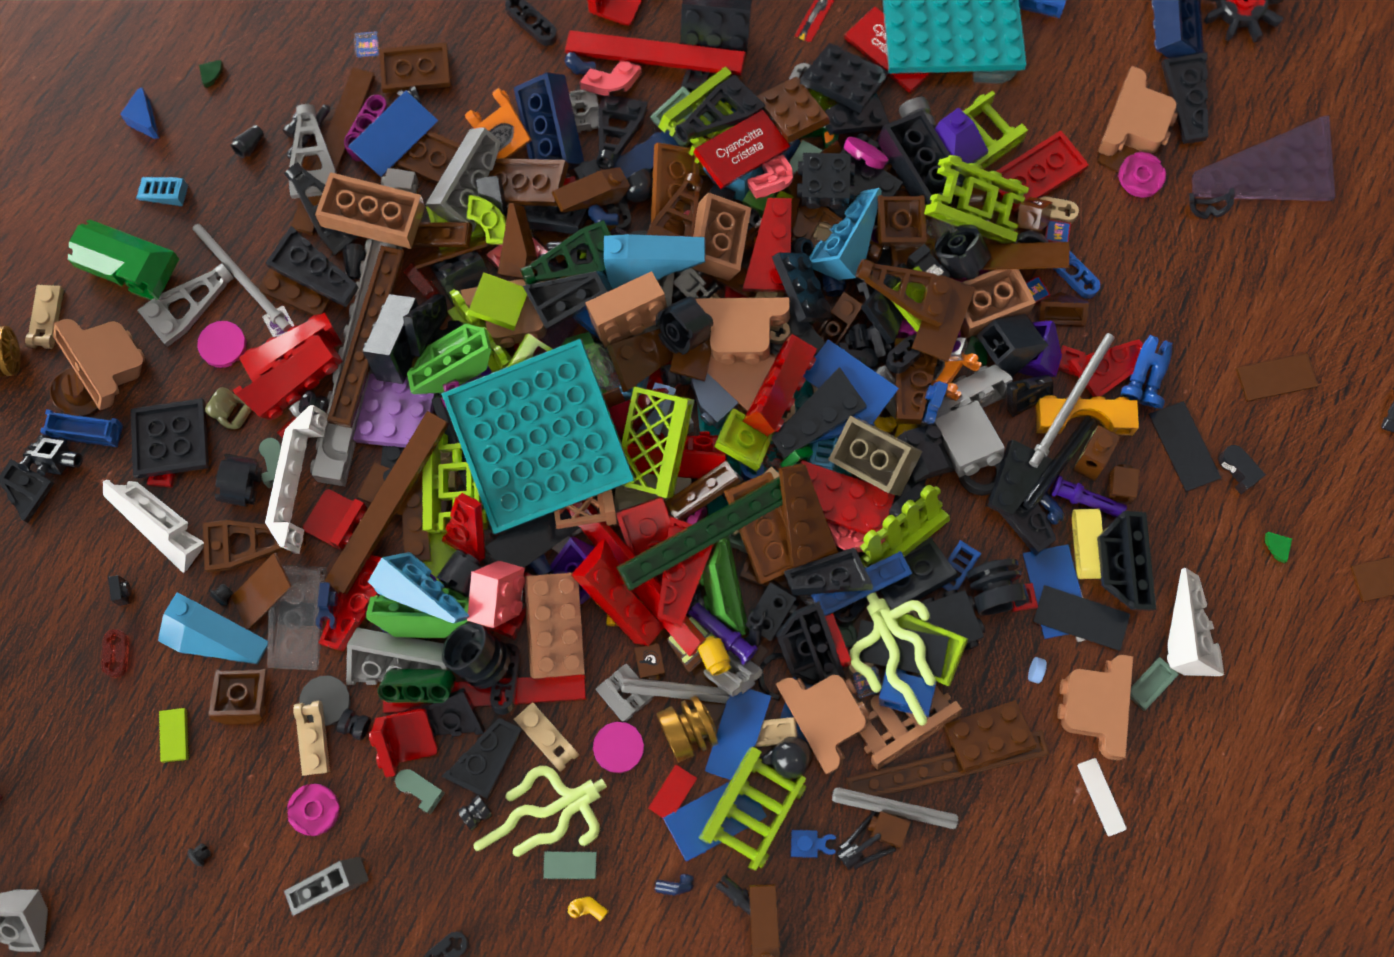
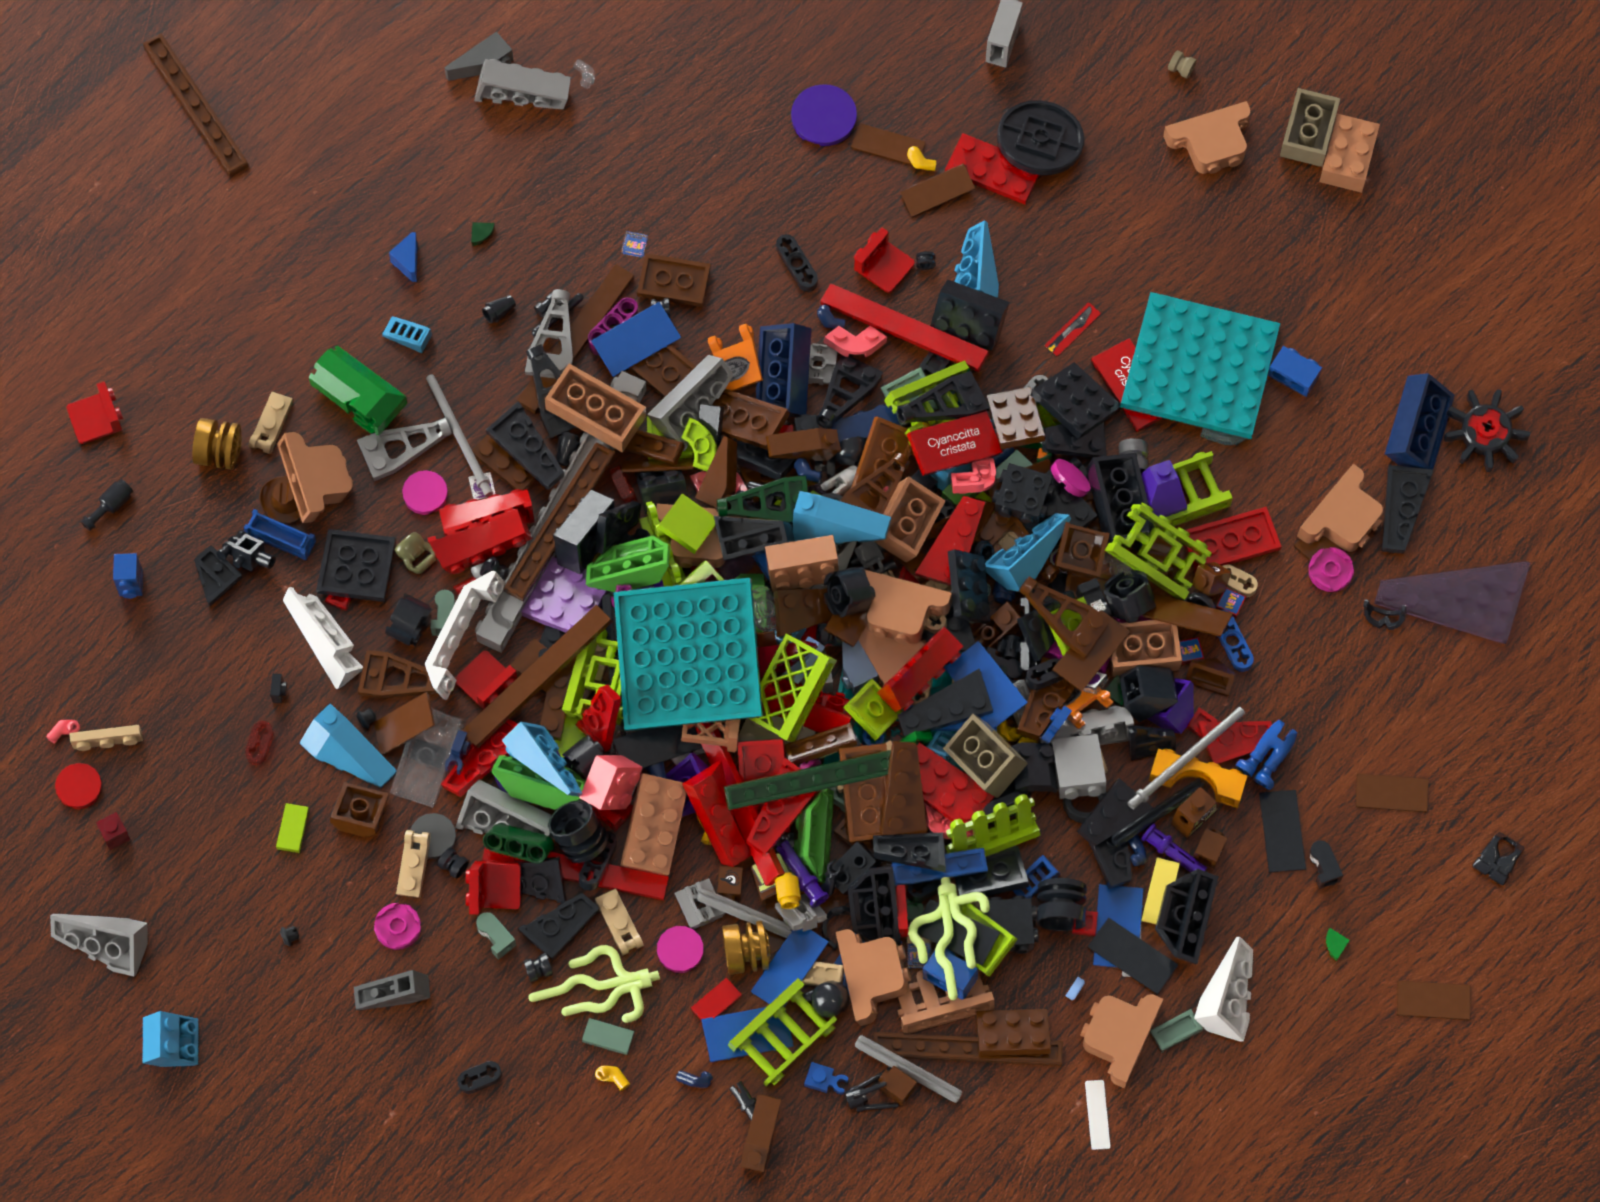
camera: 15 degrees right, 5 degrees down
(640, 217) = (842, 481): none -> white hinge

